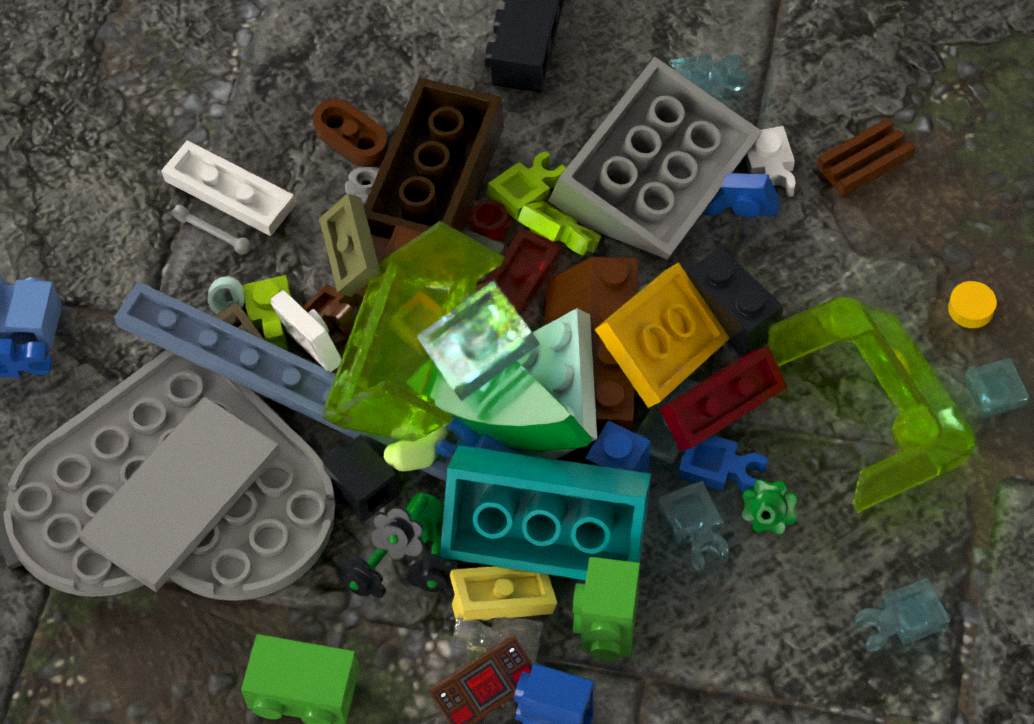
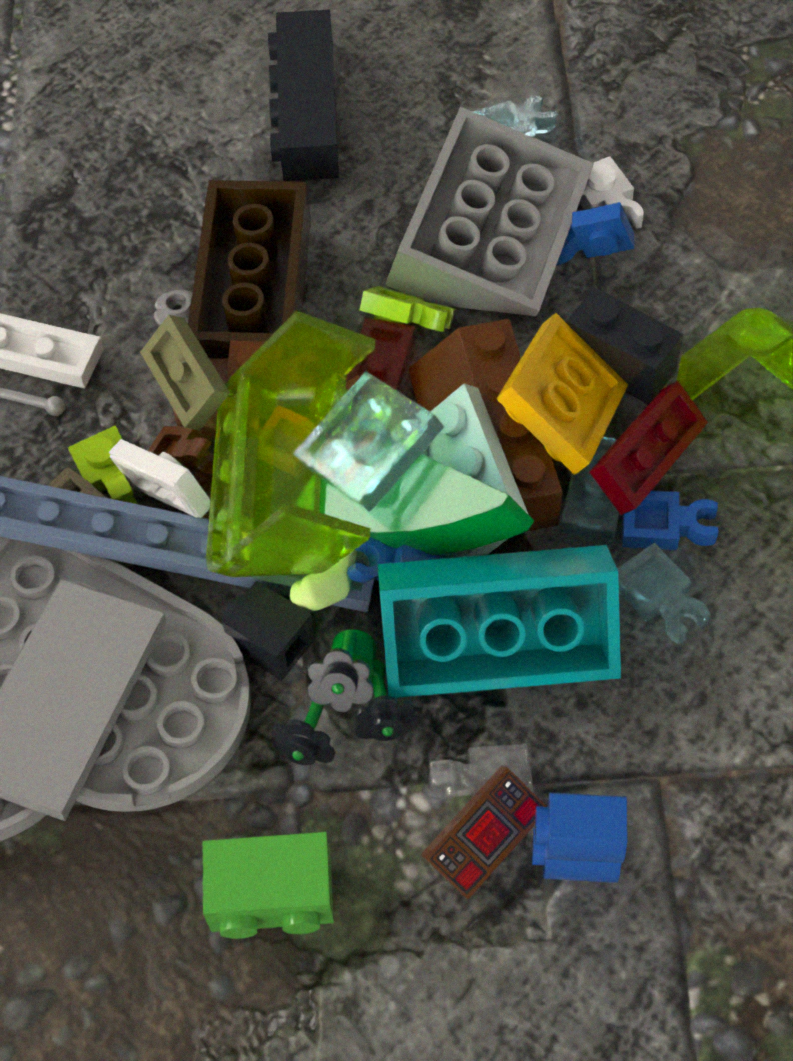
camera: 15 degrees left, 0 degrees up
(216, 294) = (40, 465): light aqua hinge -> none
(355, 133) = (152, 260): reddish brown plate -> none
(486, 212) = (330, 310): clear red plate -> none
(501, 593) = (469, 723): light yellow plate -> none
(524, 185) = (351, 274): lime plate -> none
(607, 608) = (603, 708): bright green brick -> none
(620, 449) = (555, 527): blue brick -> none
(769, 506) = (735, 553): green plant -> none
(860, 151) = (723, 147): reddish brown tile -> none

